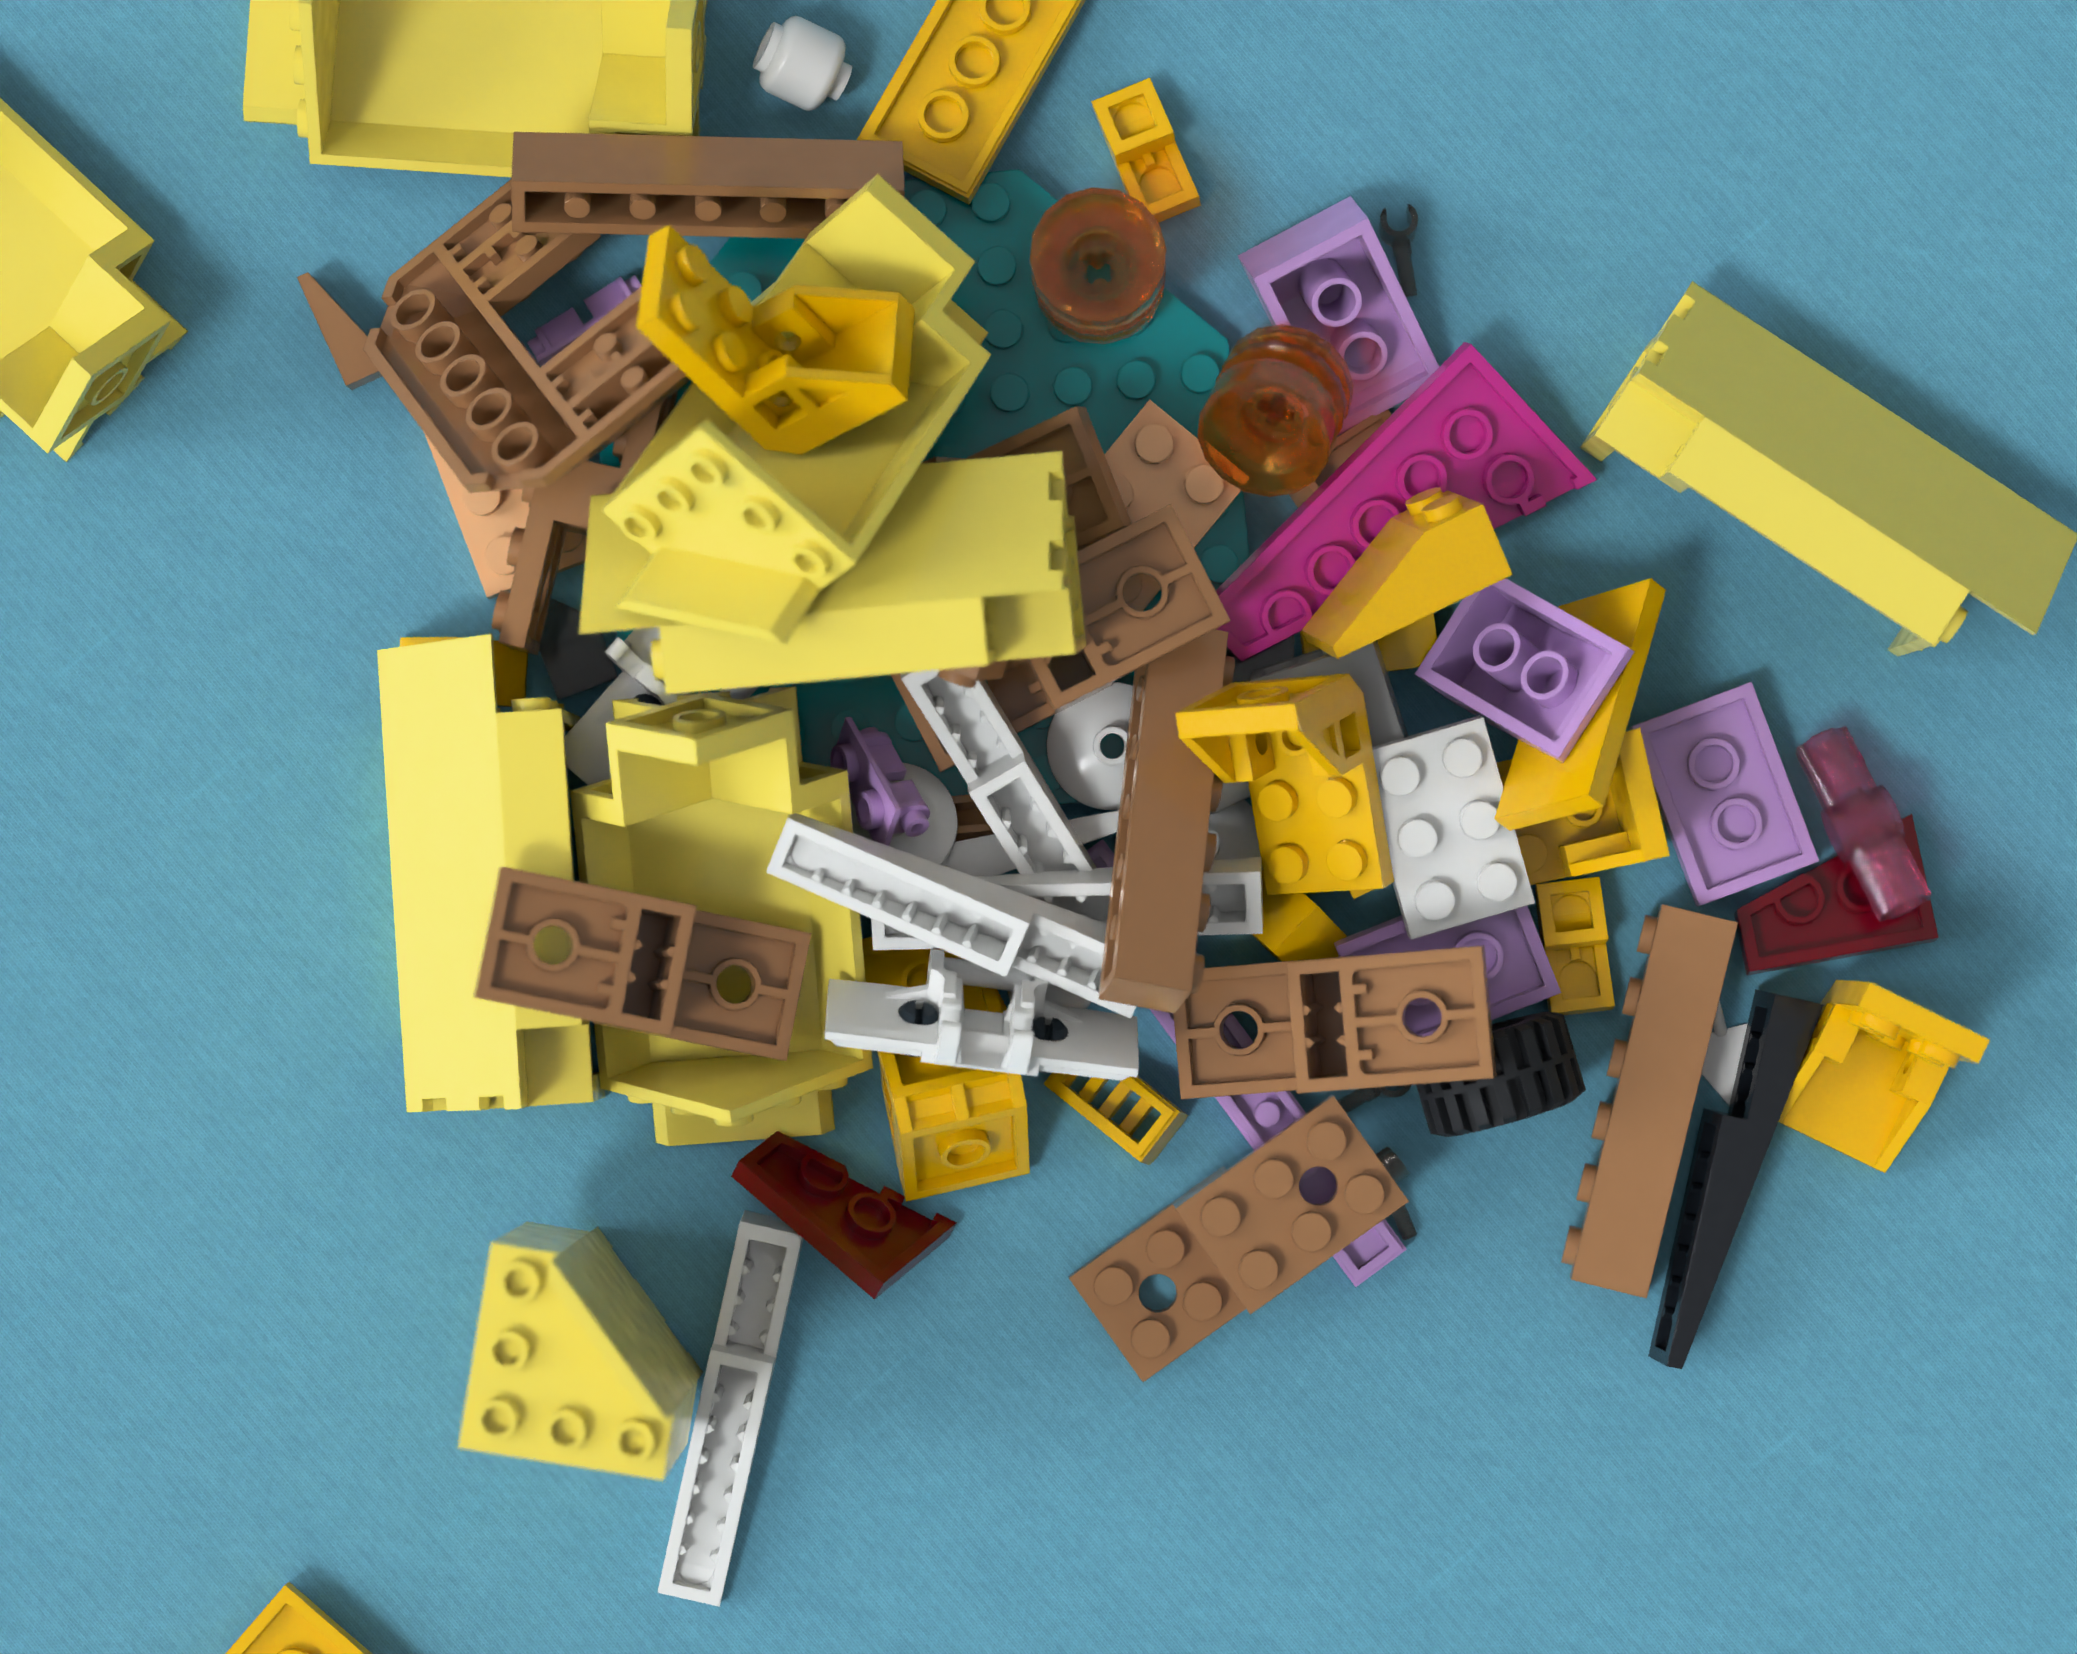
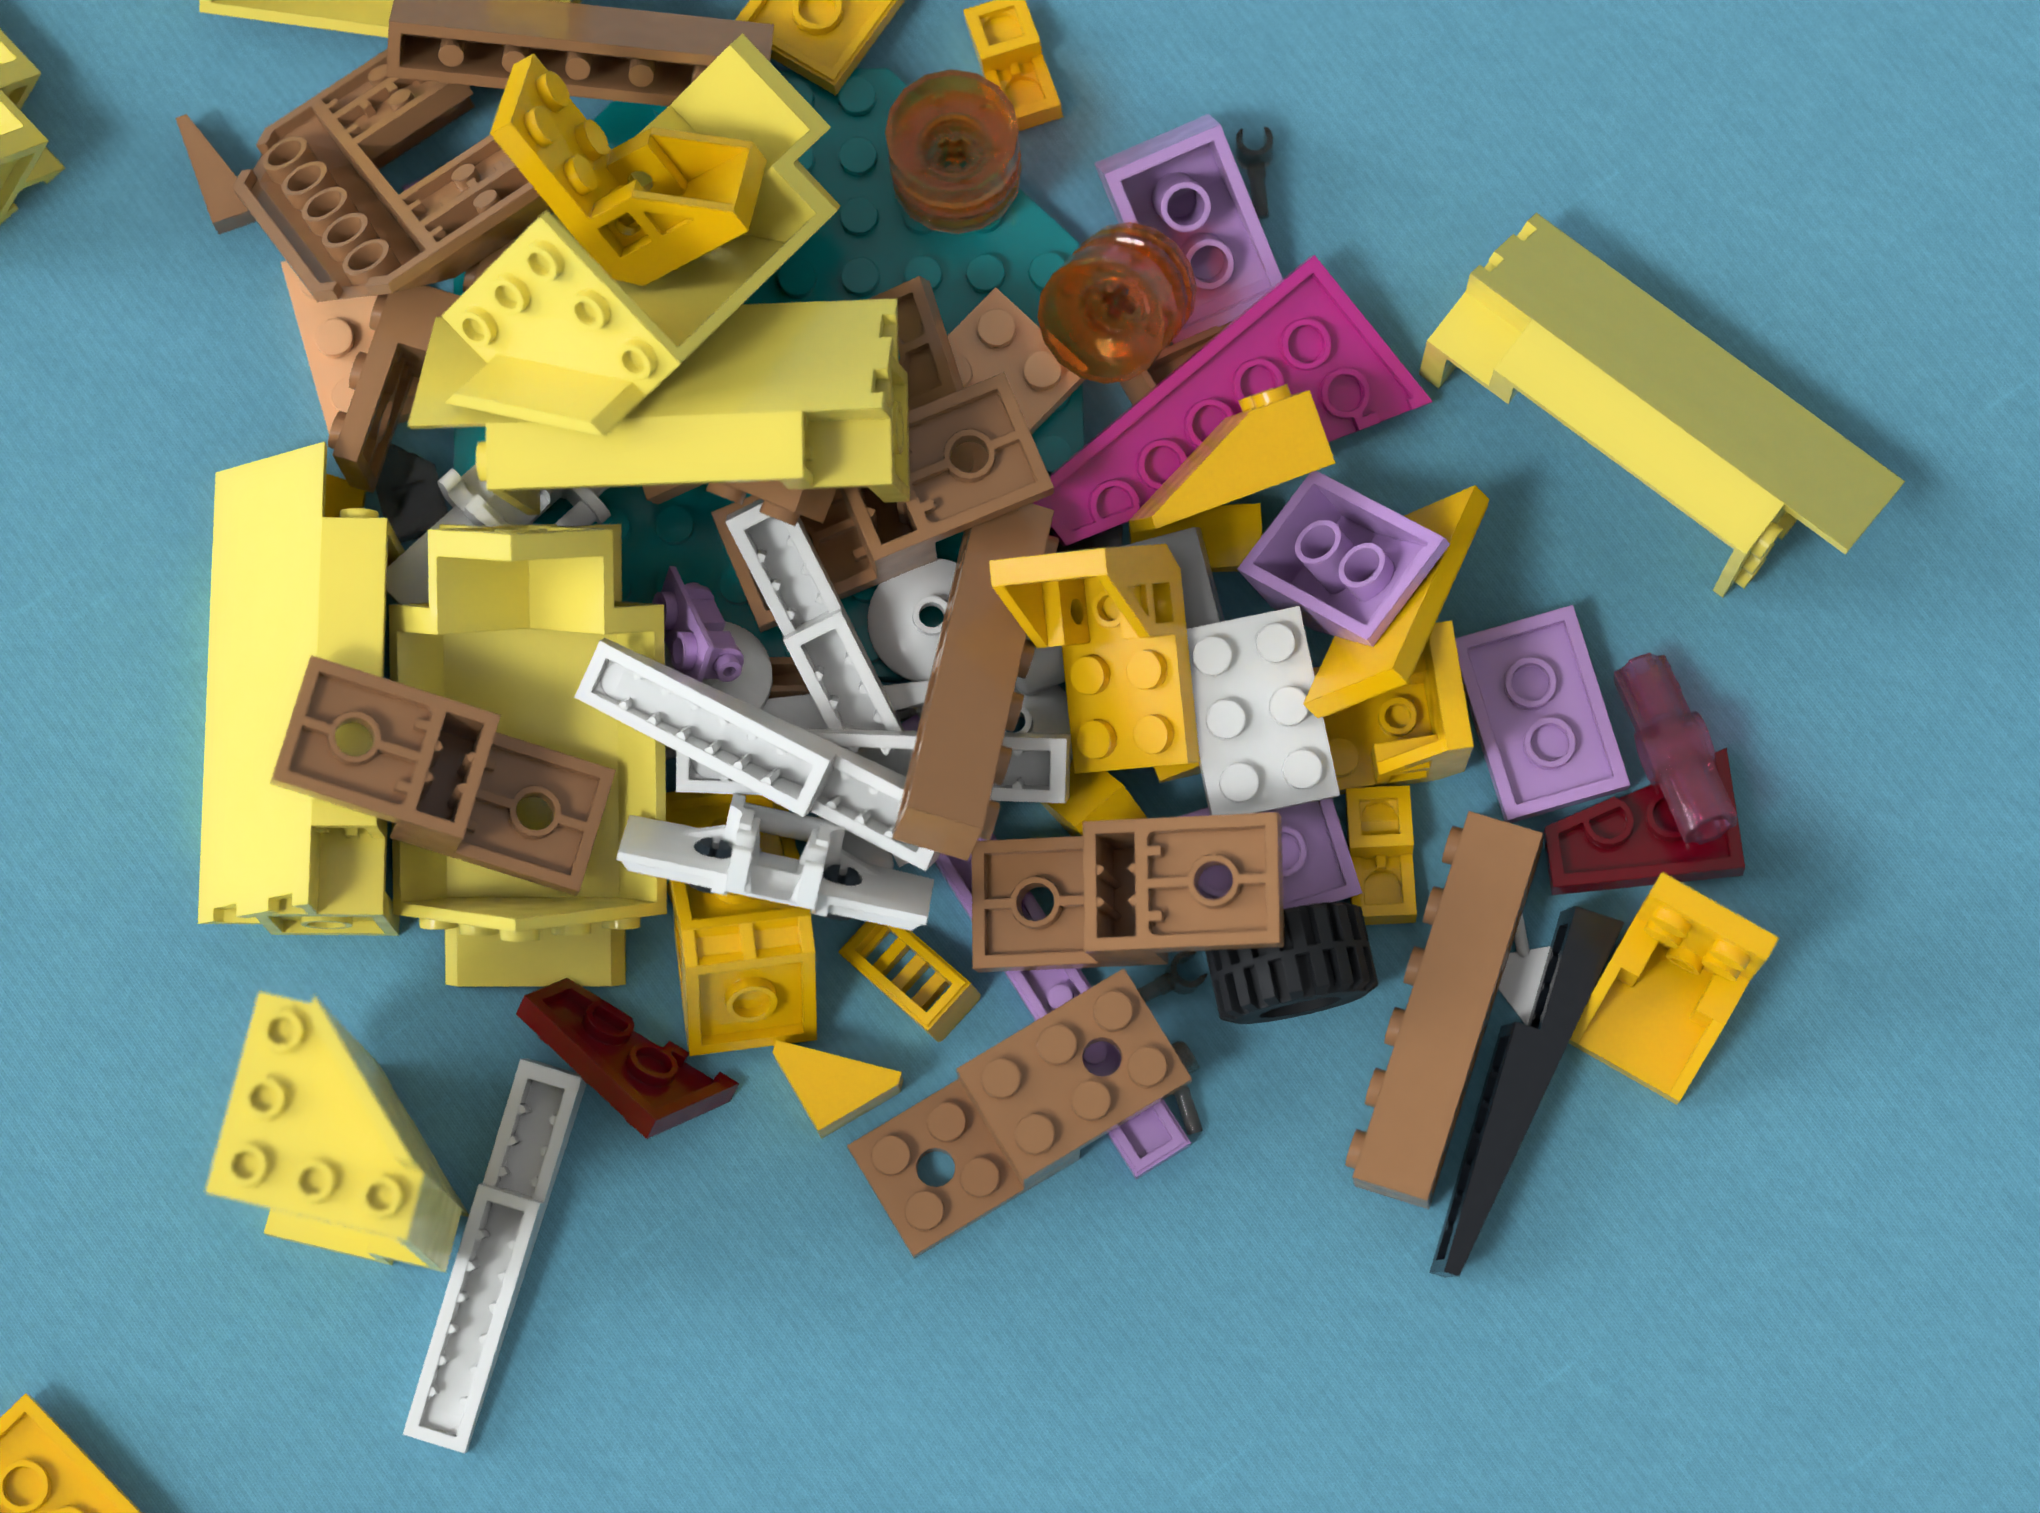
camera: 10 degrees right, 10 degrees down
(1050, 1222) = (834, 1087): none -> yellow slope

